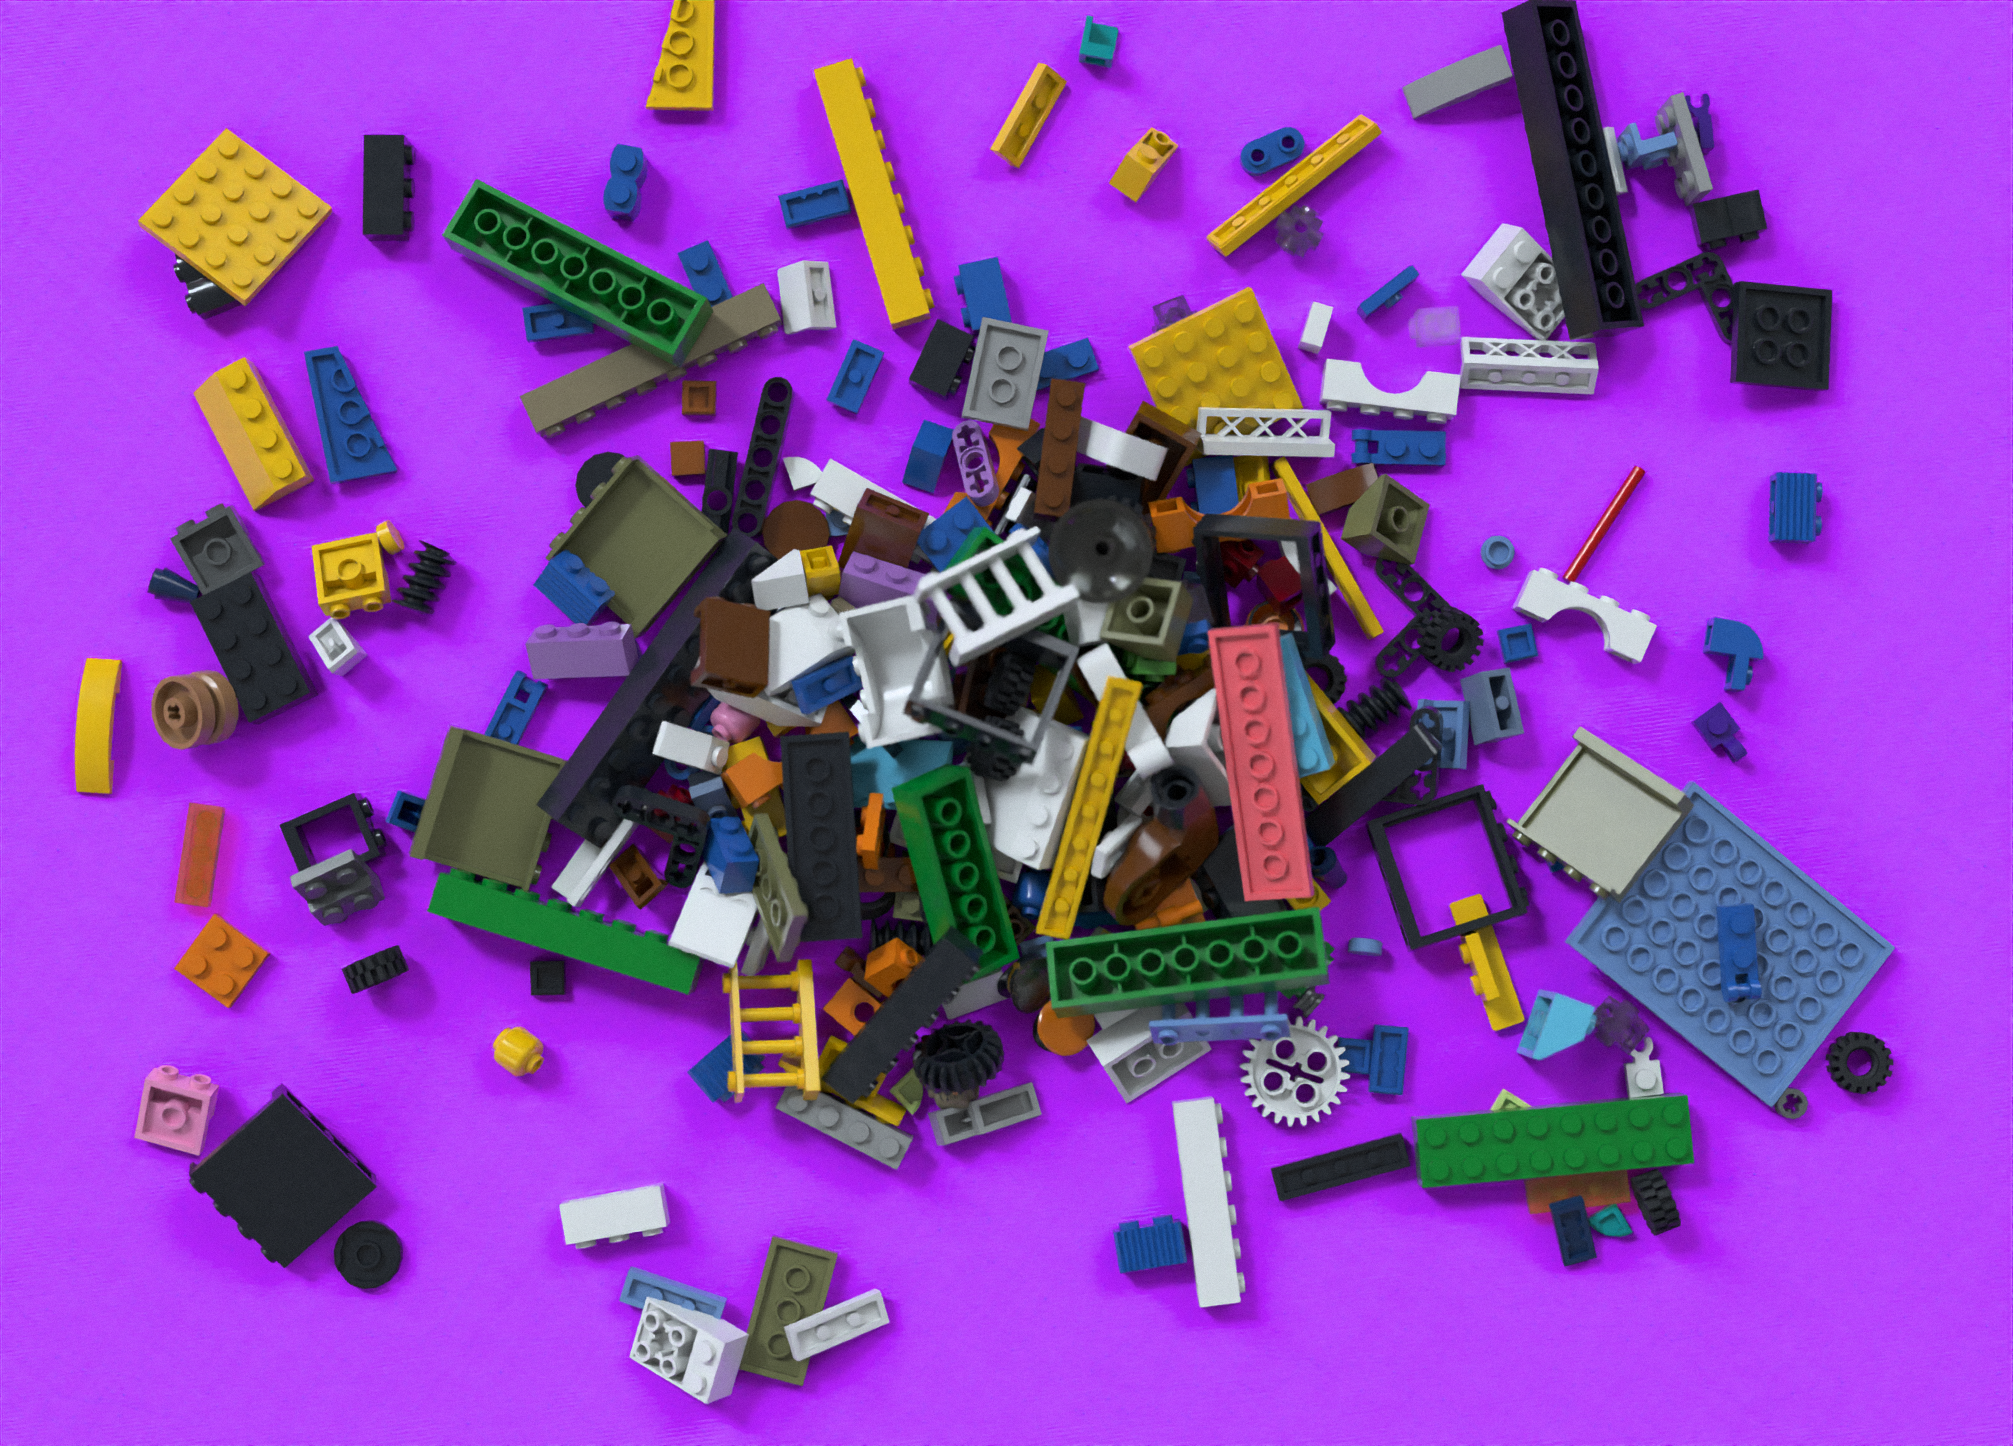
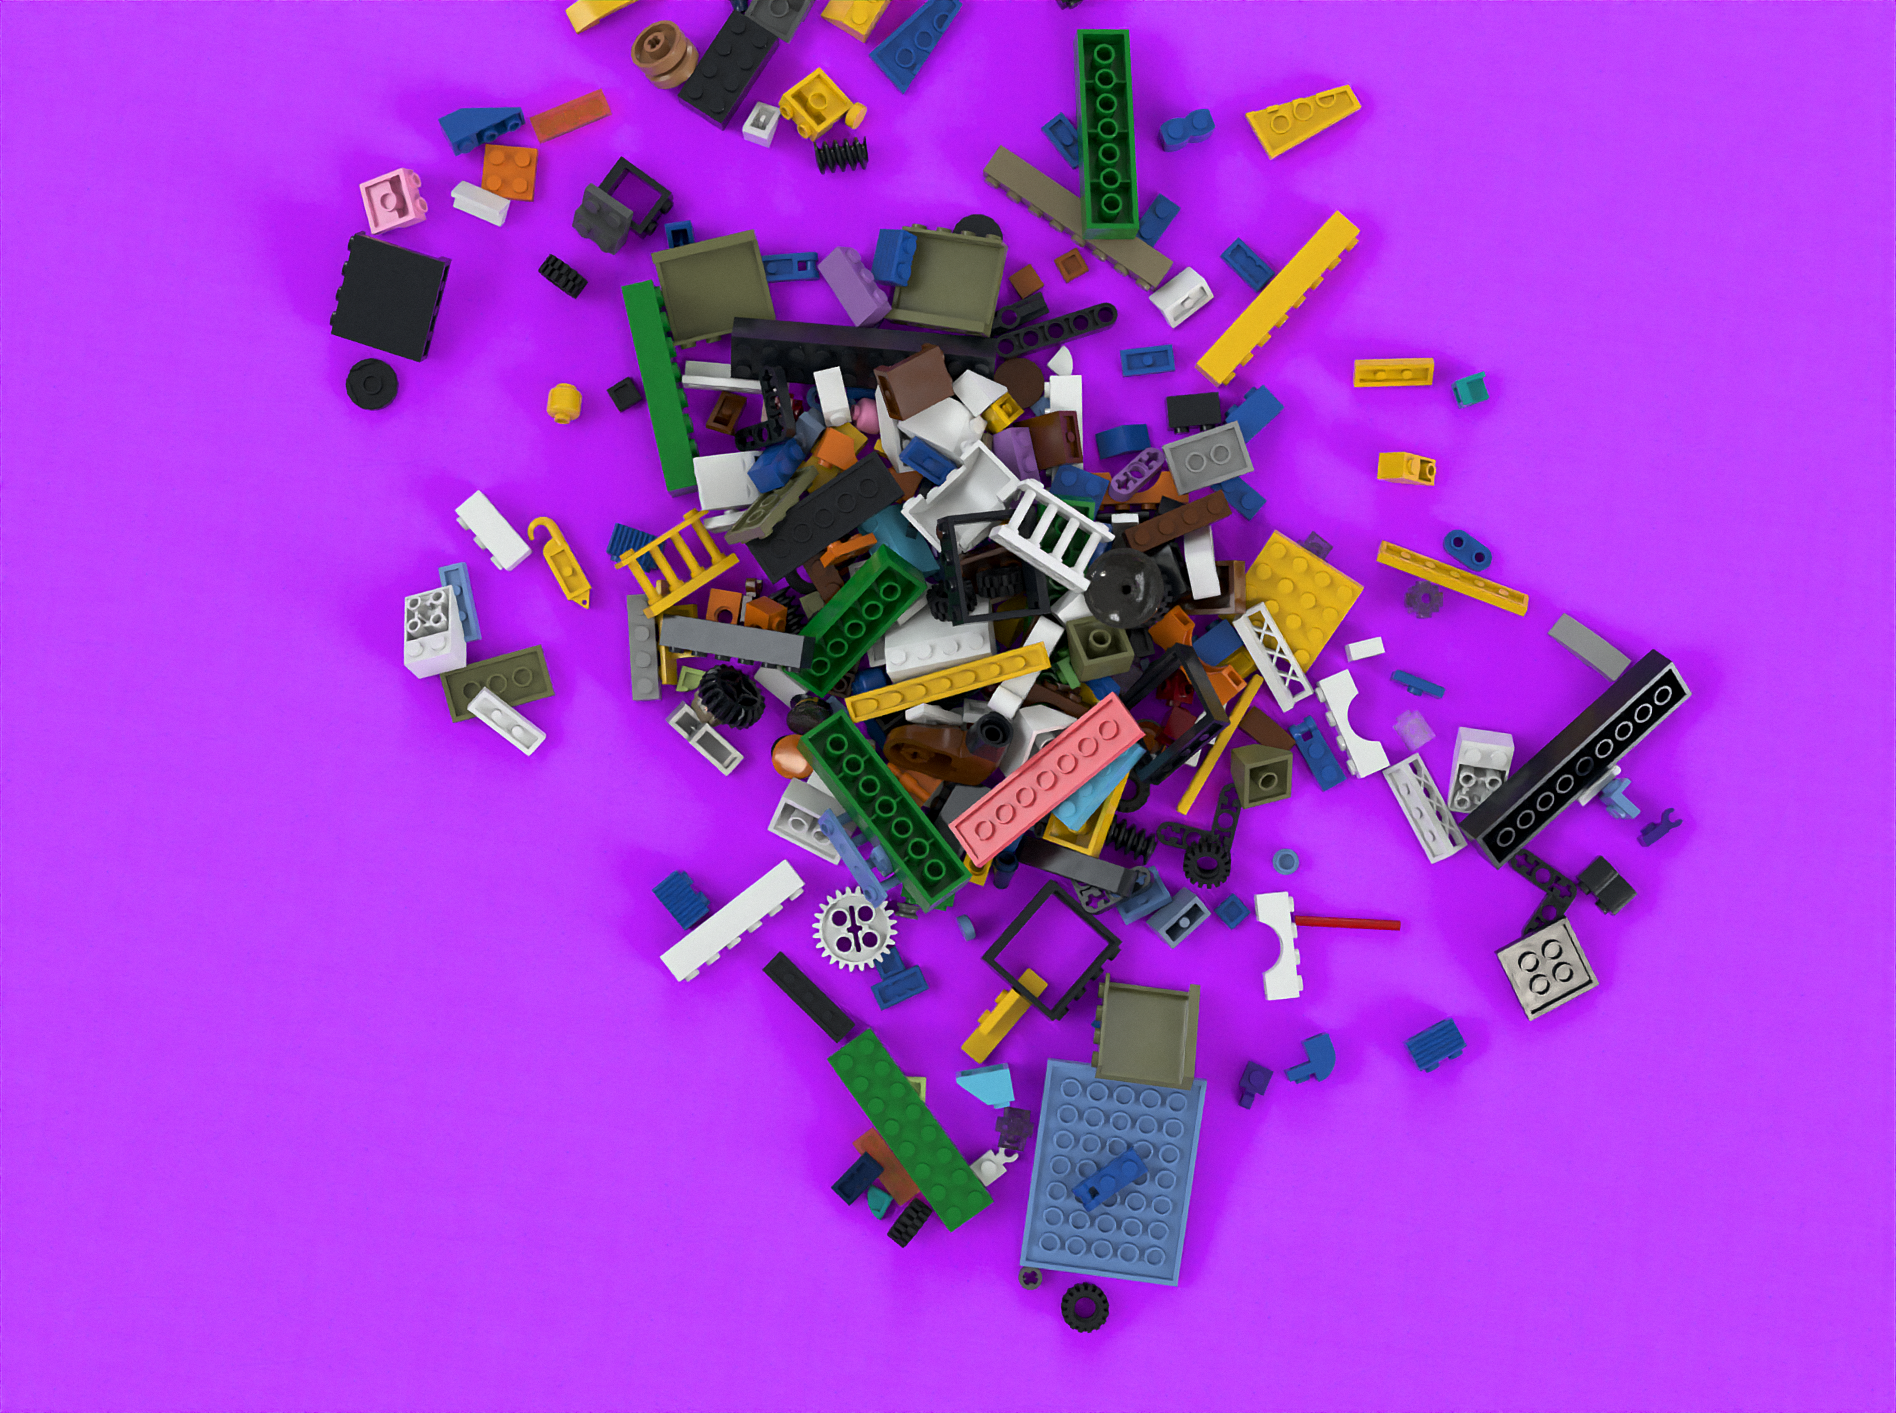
camera: 60 degrees right, 0 degrees up
(147, 970) = (475, 126): none -> blue slope
(237, 1013) = (480, 203): none -> white panel
(696, 1157) = (563, 562): none -> yellow plate
(1242, 998) = (881, 861): none -> medium blue tile
(1686, 158) = (1632, 829): plate -> none

